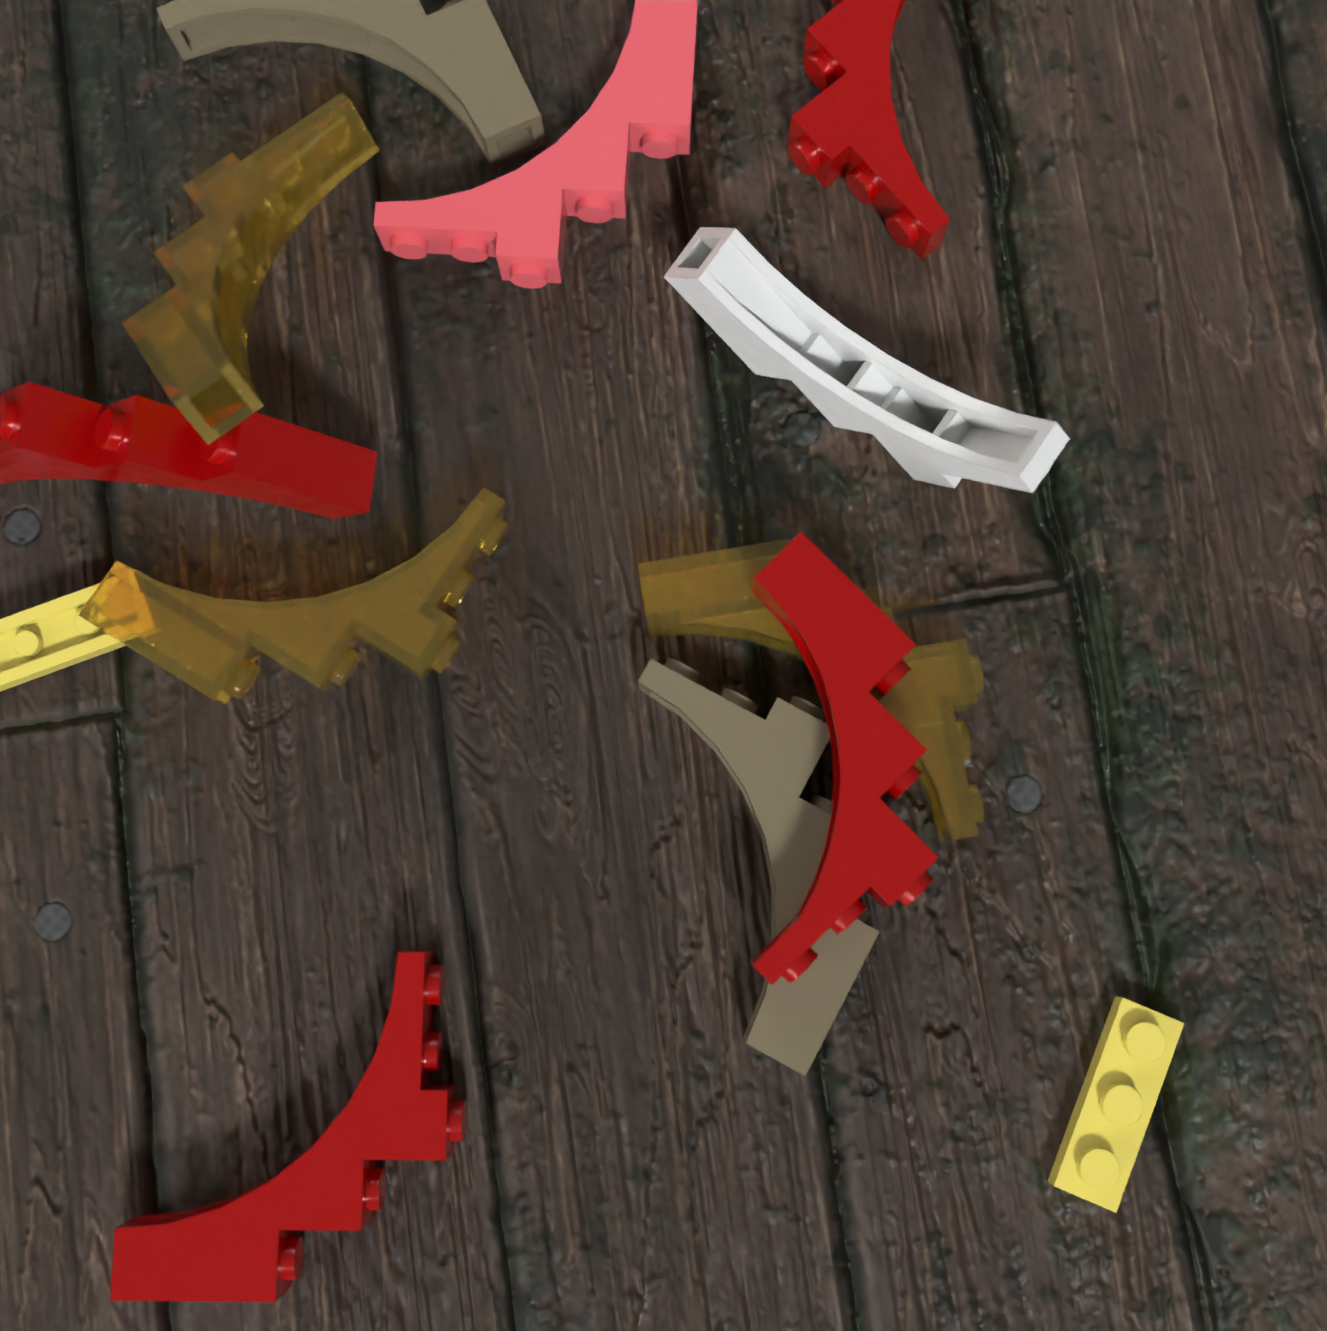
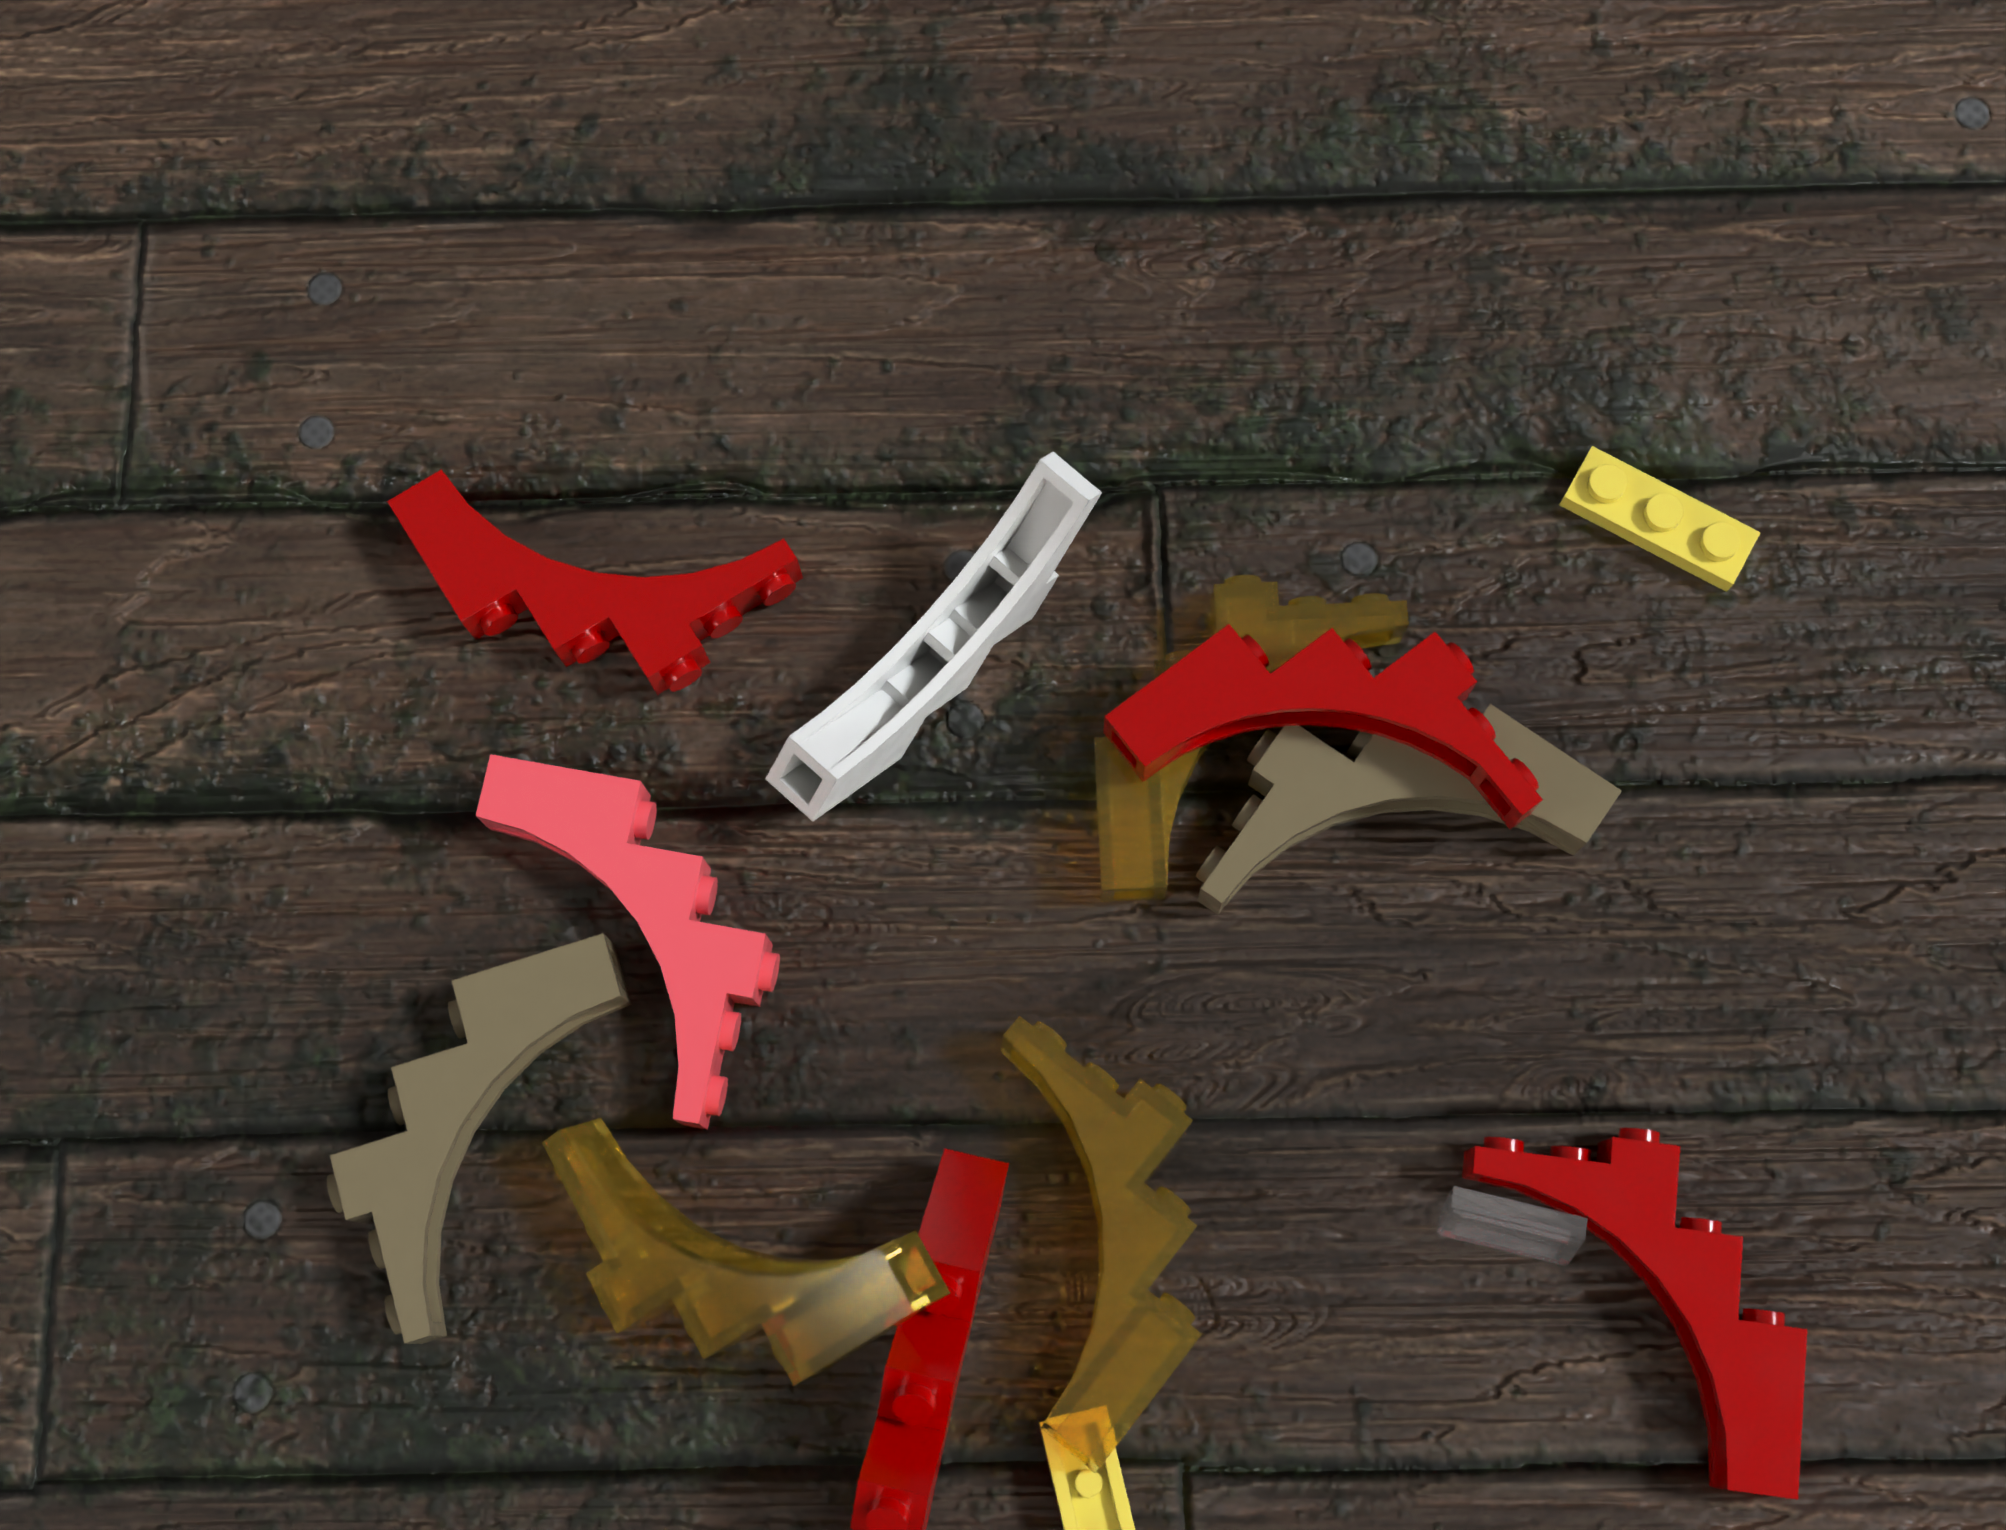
camera: 80 degrees left, 5 degrees down
(357, 999) = (1511, 1226): none -> clear tile

